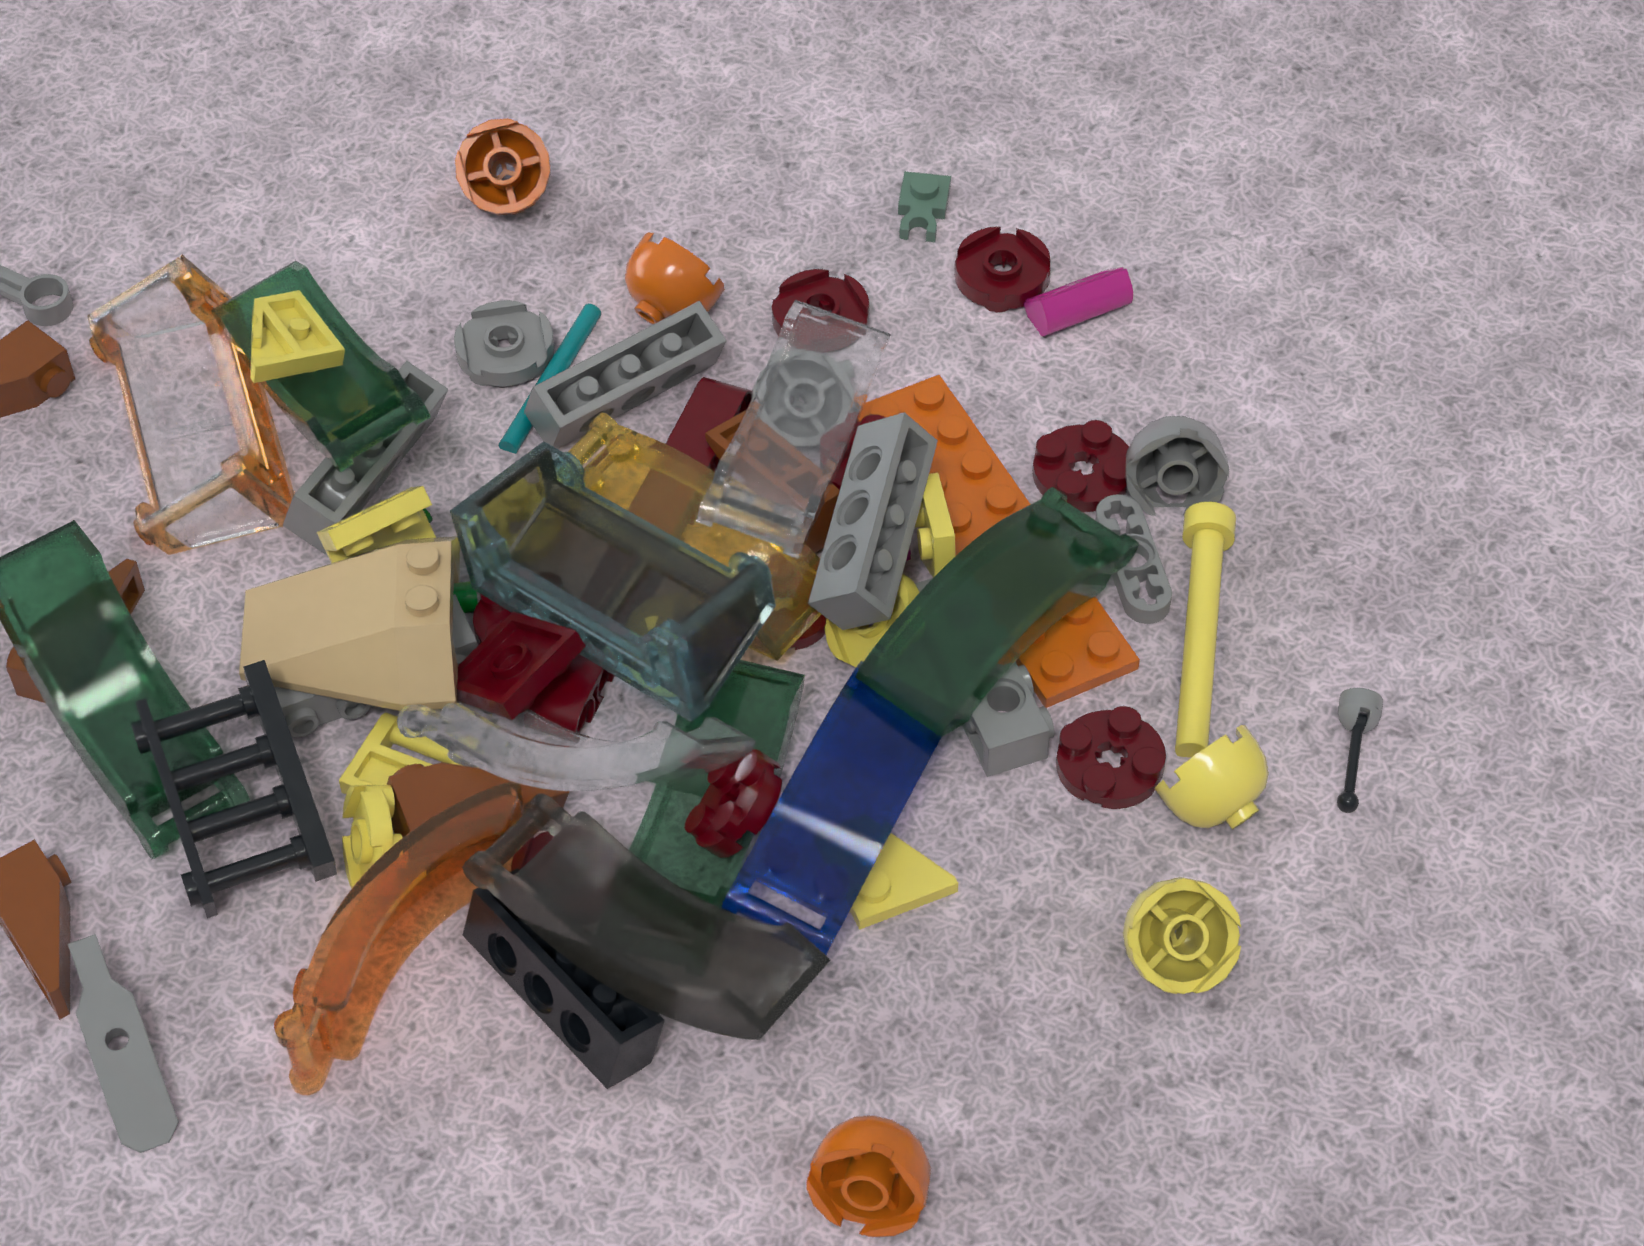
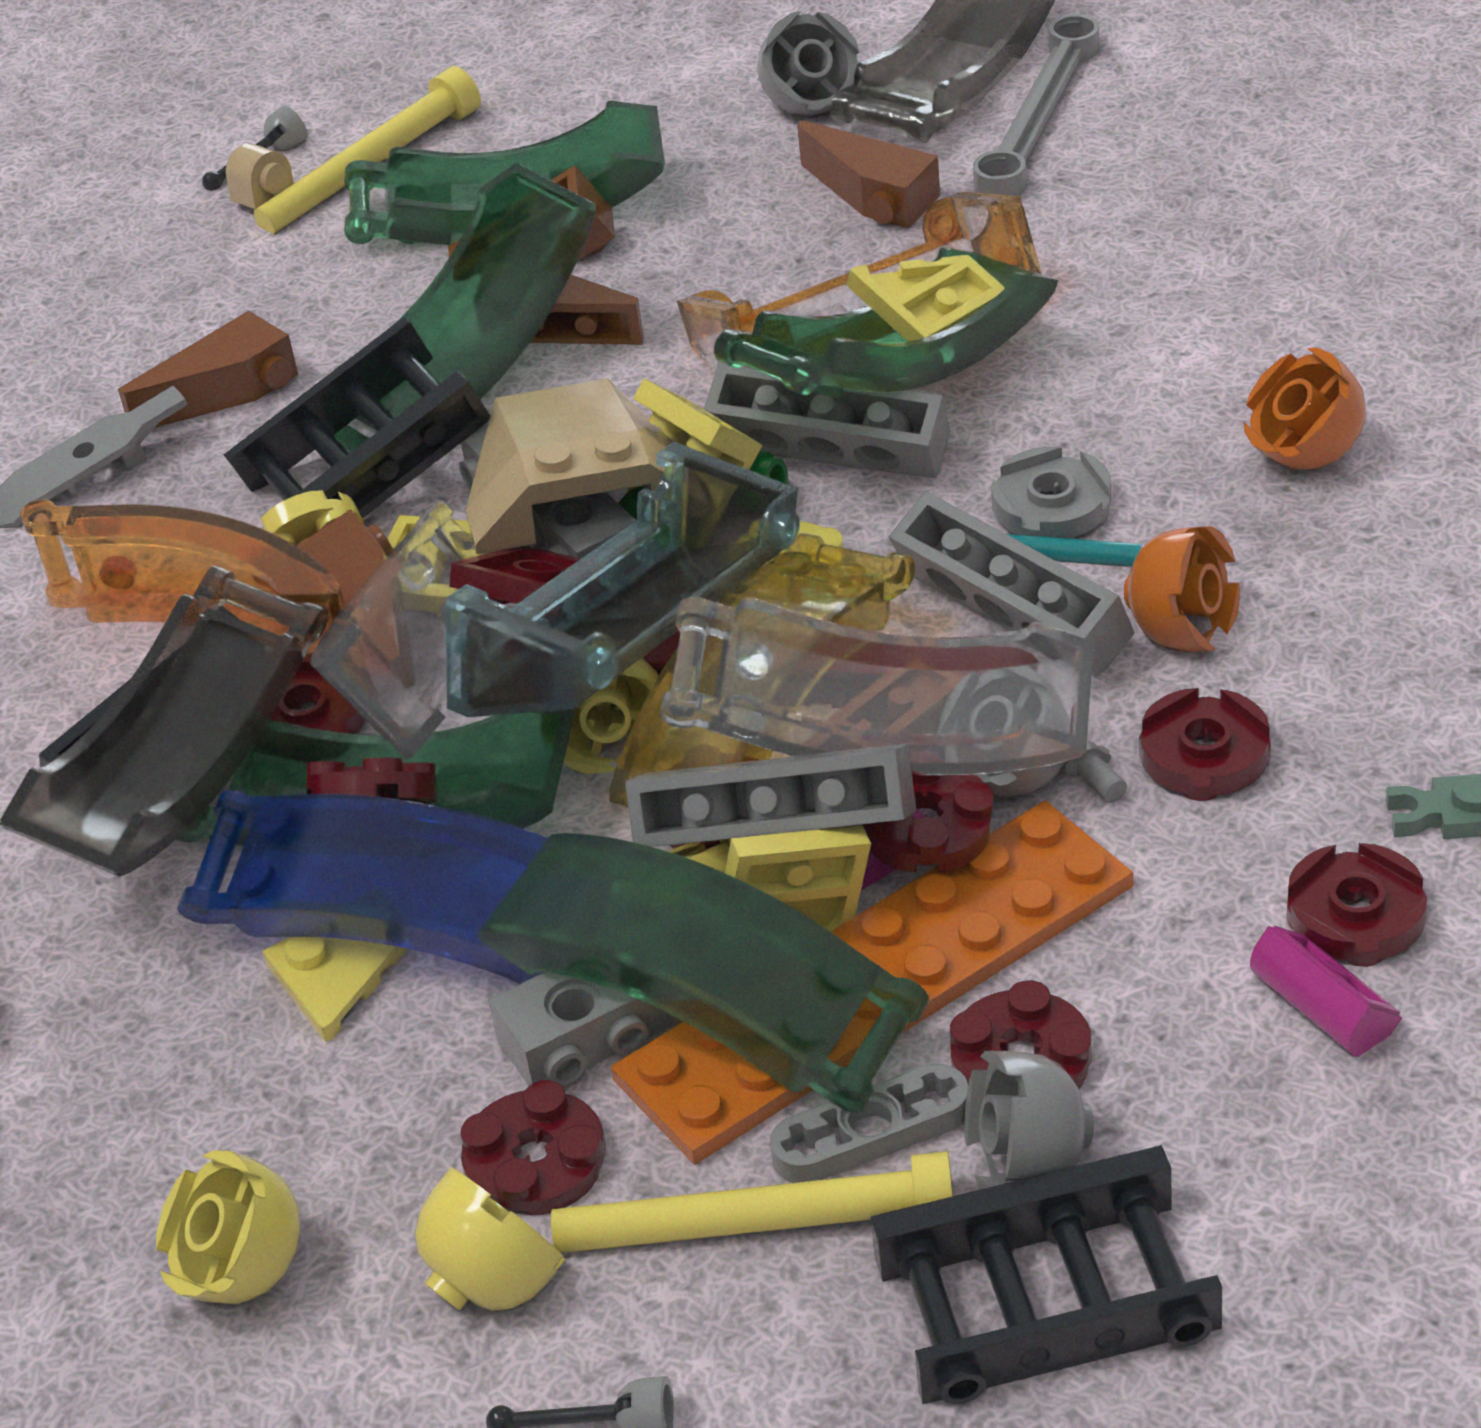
camera: 85 degrees right, 10 degrees down
(1253, 505) = (1027, 1212): none -> black fence

